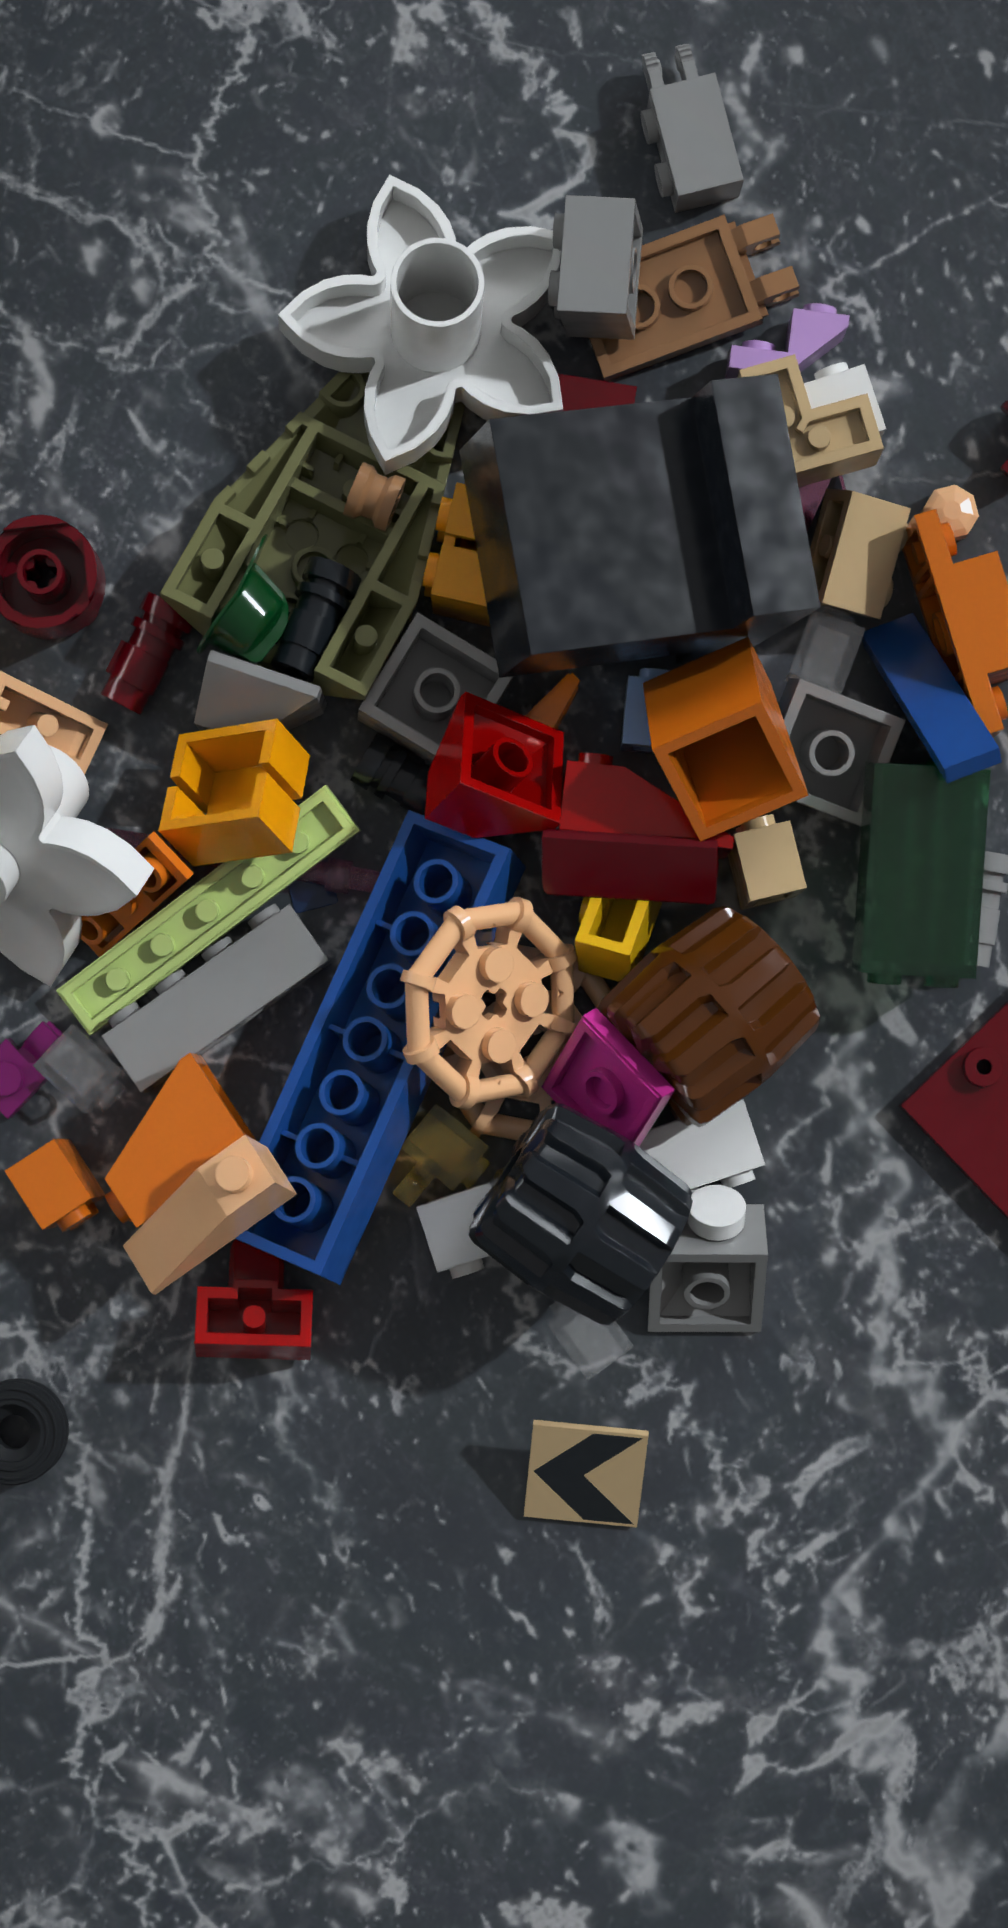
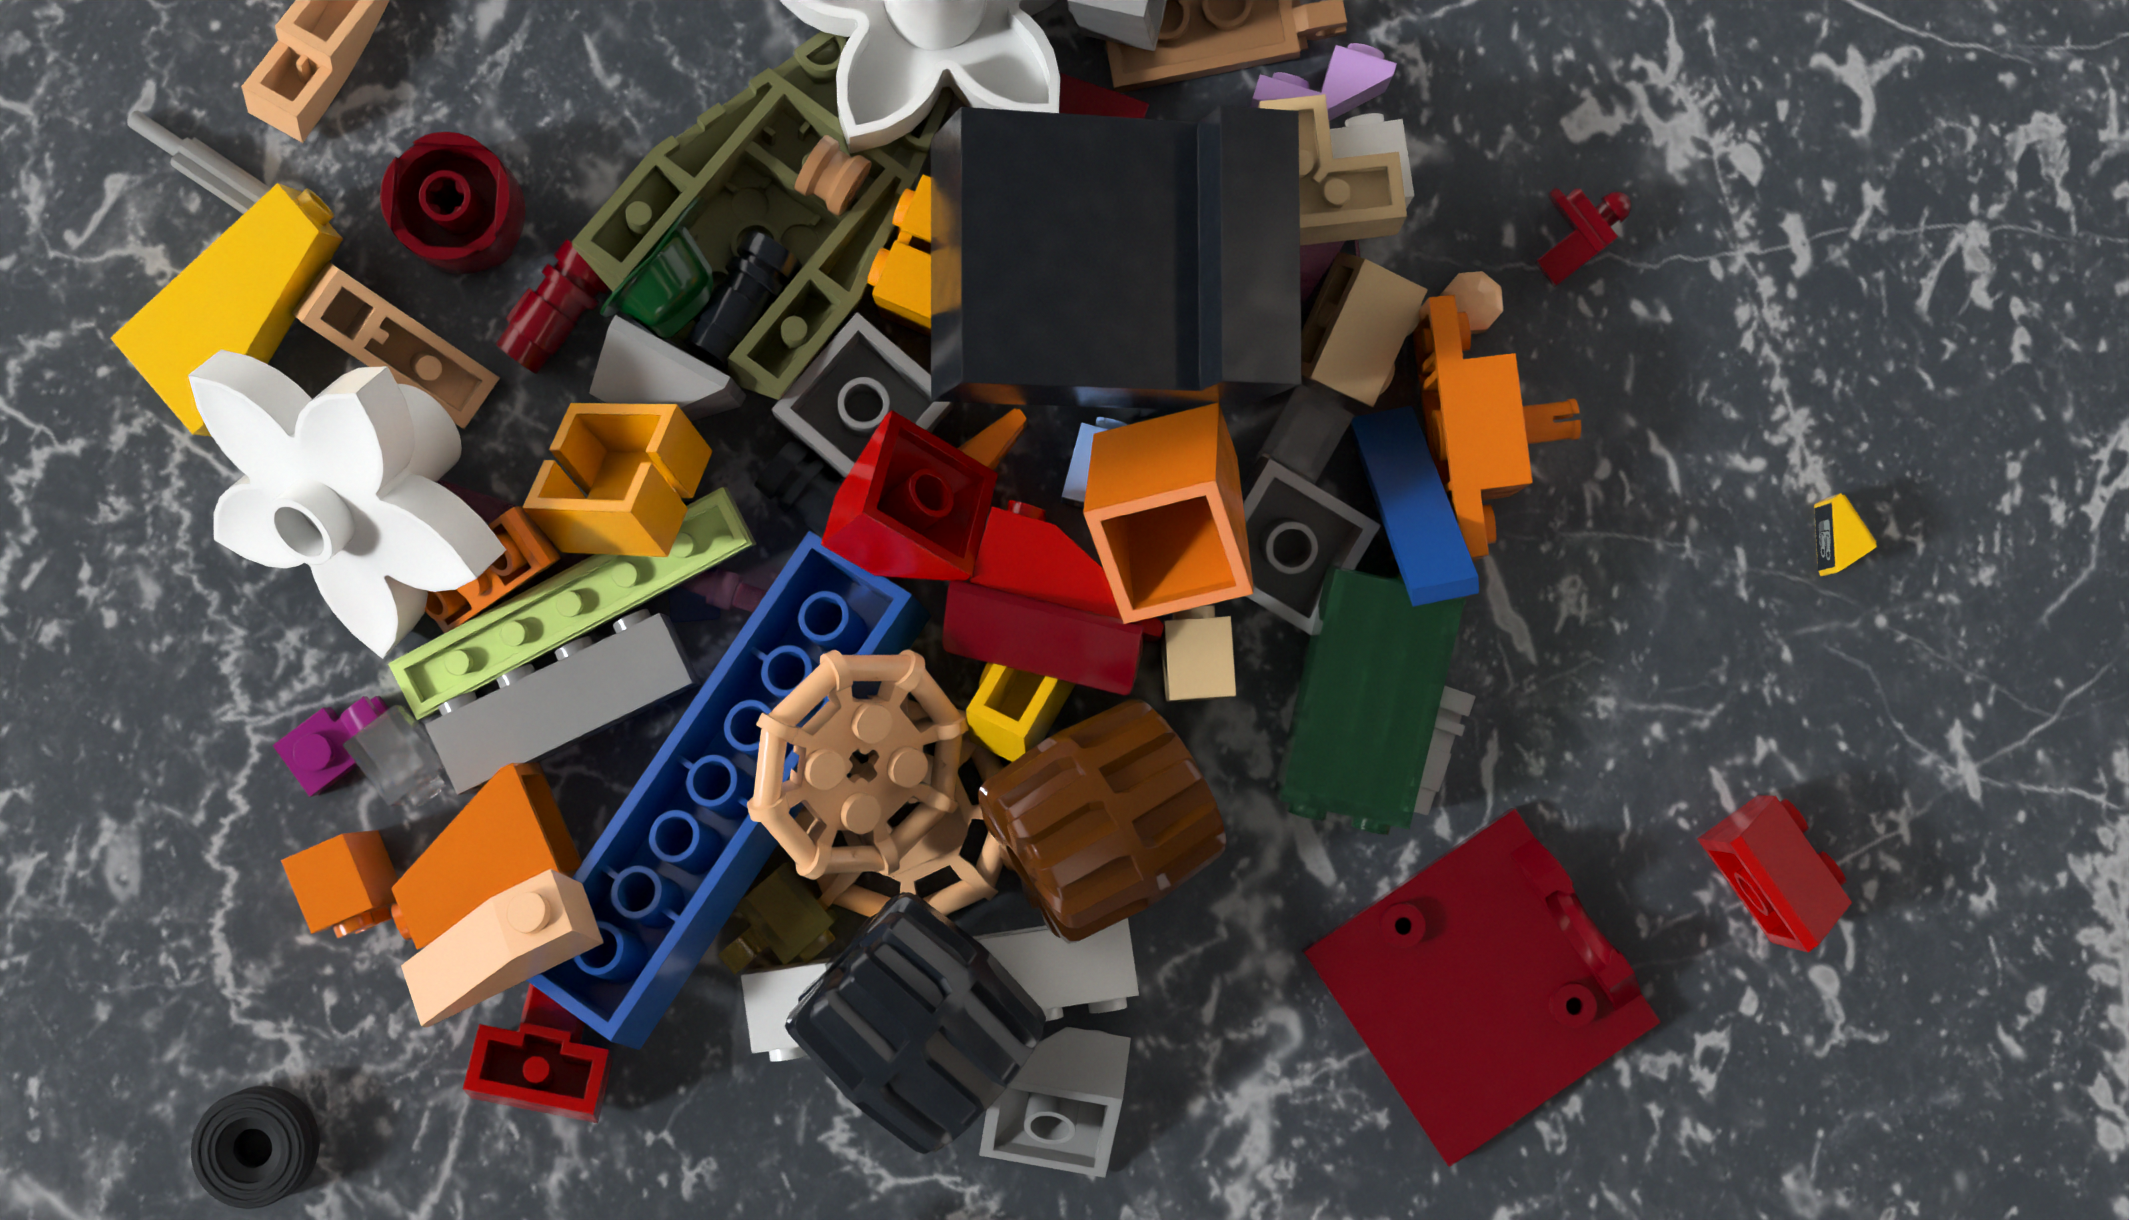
camera: 10 degrees right, 0 degrees up
(587, 1342) = (906, 1169): clear brick -> none
(608, 1079) = (975, 875): dark pink plate -> none
(717, 1212) = (1074, 1040): white tile -> none

